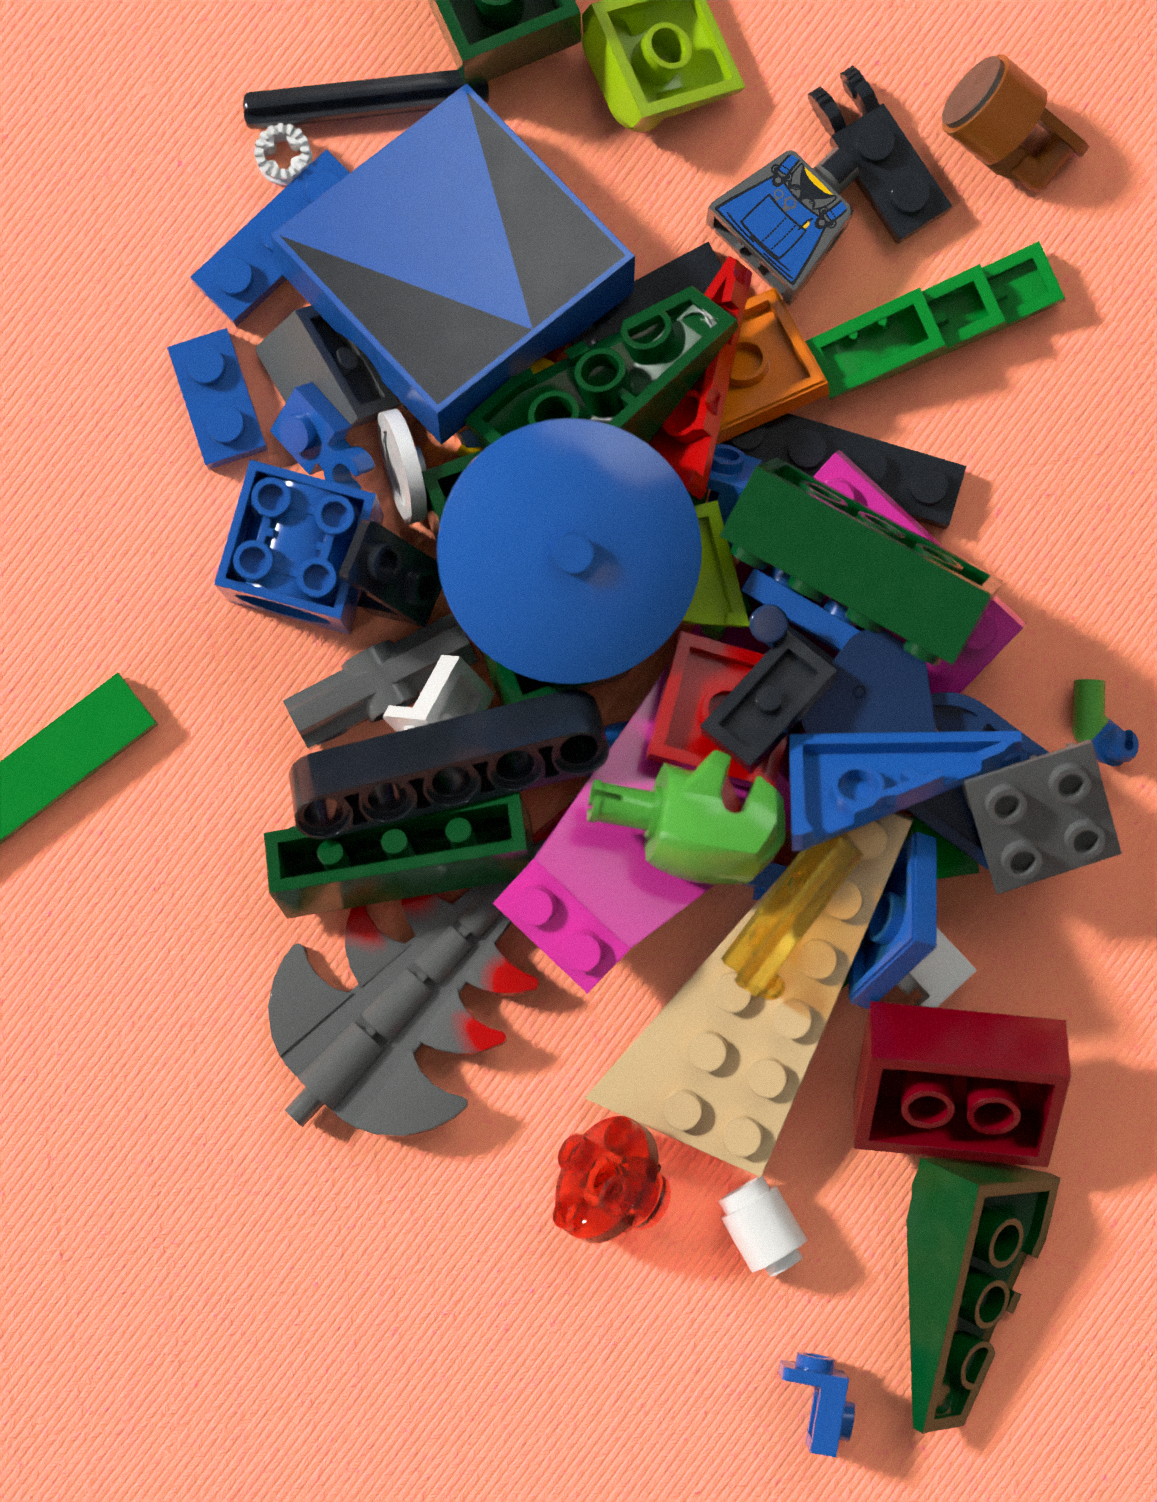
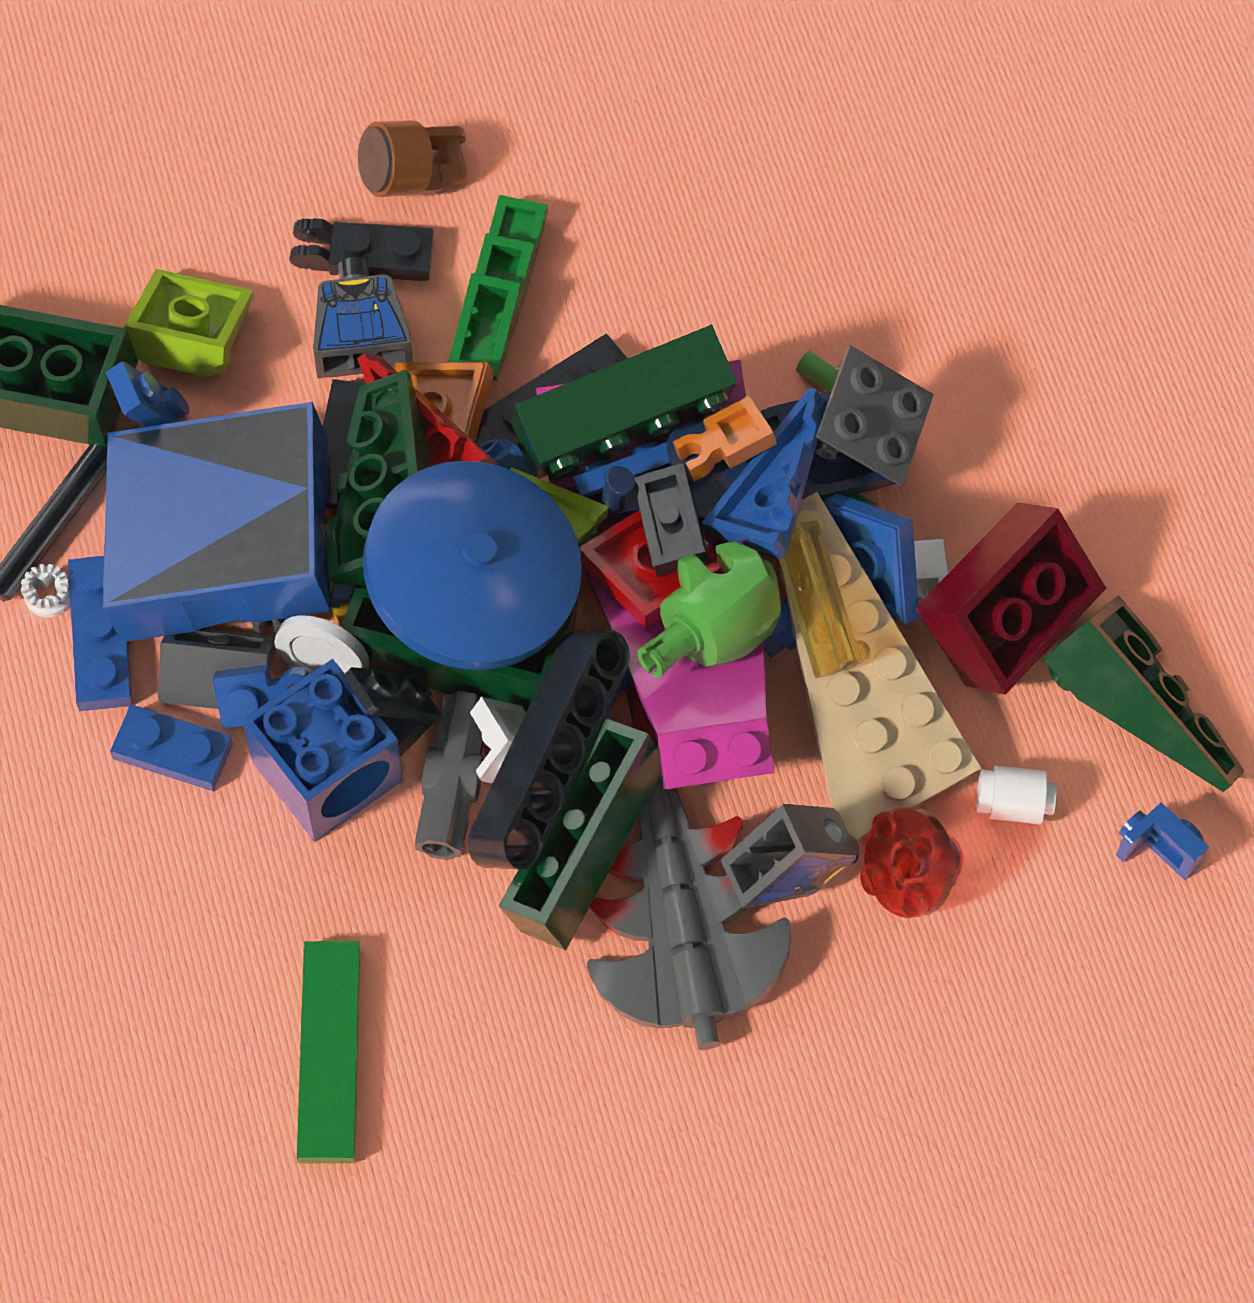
camera: 55 degrees left, 20 degrees down
(532, 94) = (145, 398): none -> blue plate
(538, 1079) = (806, 846): none -> dark grey torso
(903, 698) = (730, 435): none -> orange plate

